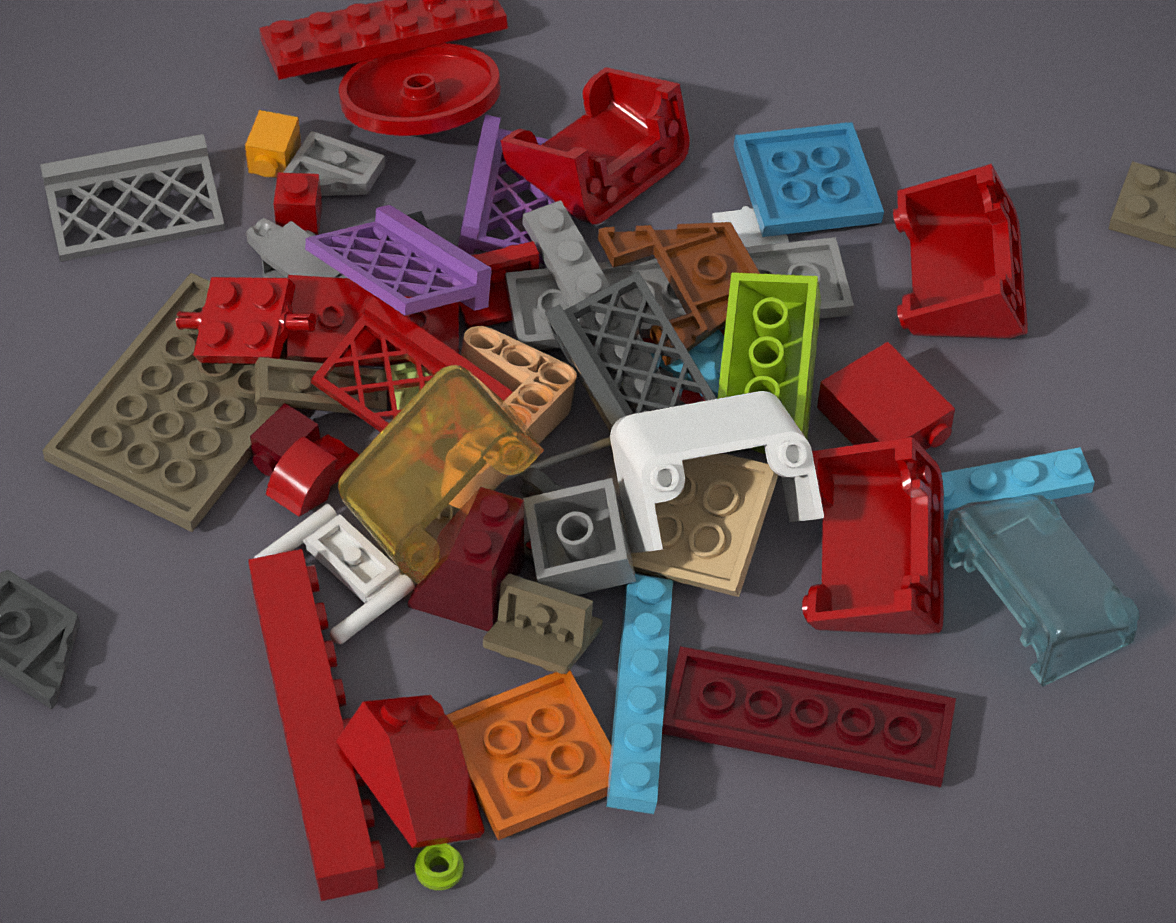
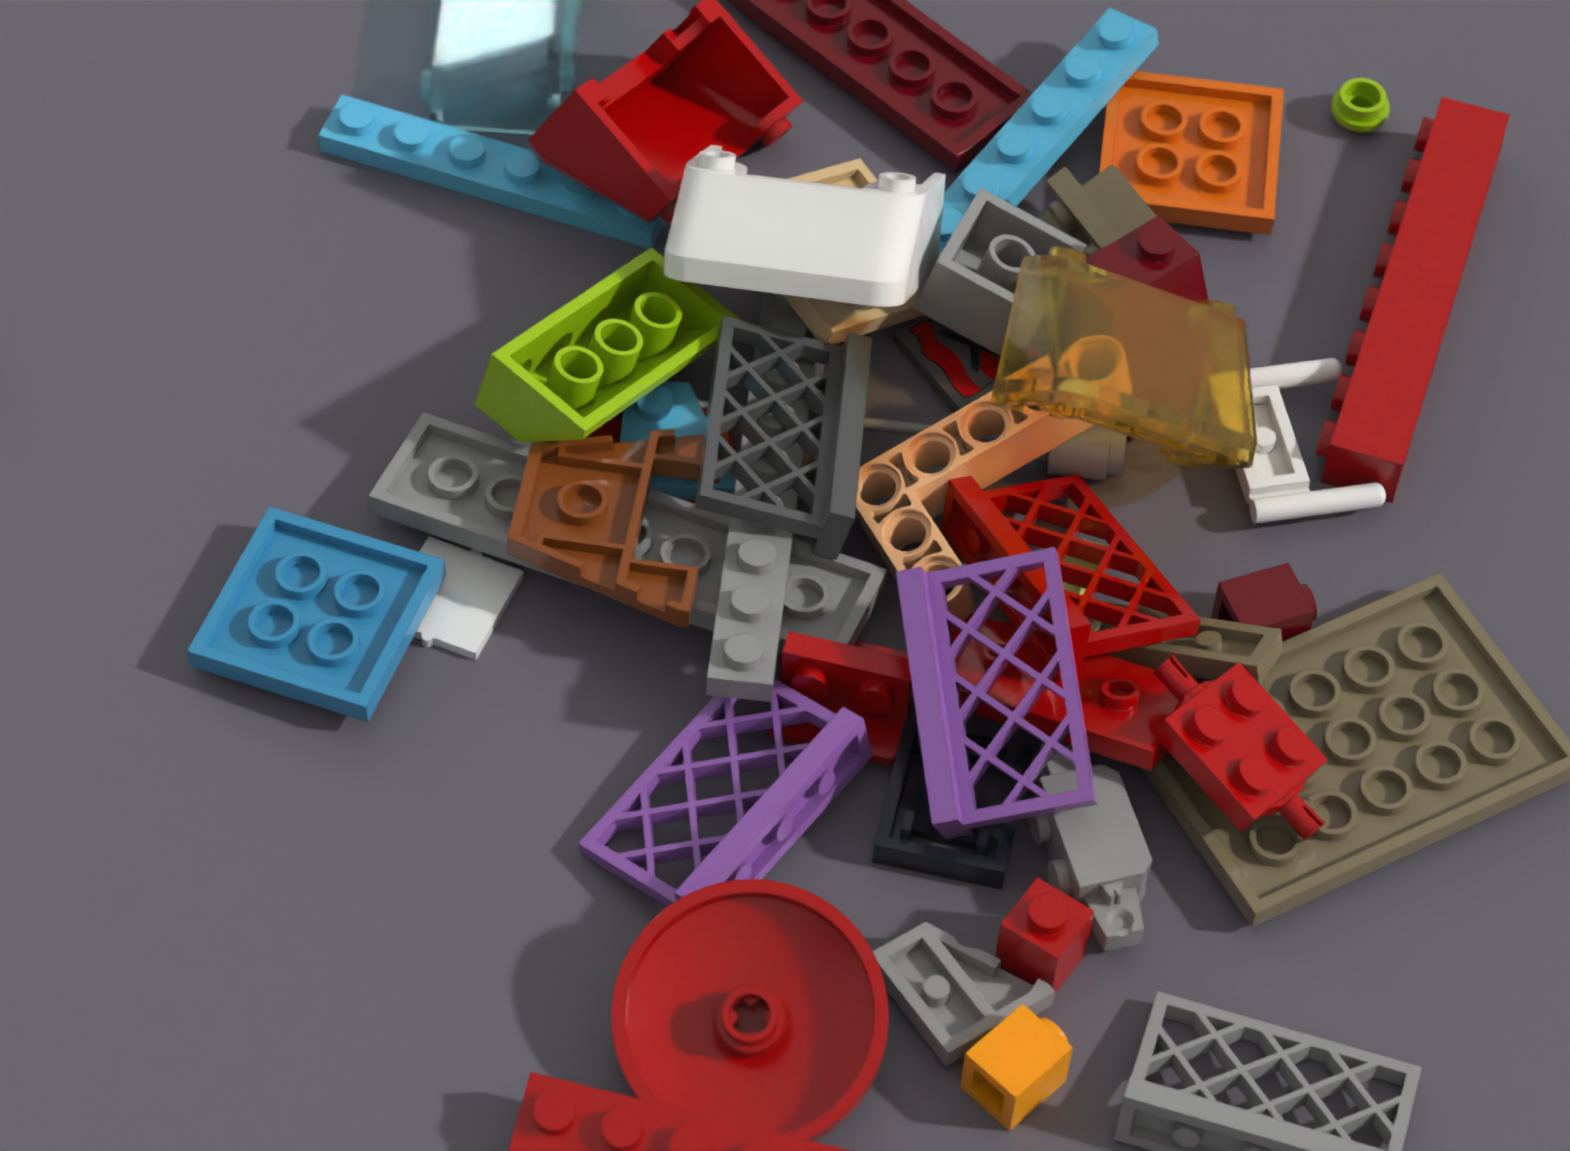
camera: 150 degrees left, 0 degrees up
(308, 472) = (1254, 543): red brick -> none
(414, 768) = (1345, 171): red slope -> none
(613, 152) = (572, 781): red windscreen -> none
(885, 400) = (495, 275): red brick -> none
(963, 258) = (247, 384): red windscreen -> none

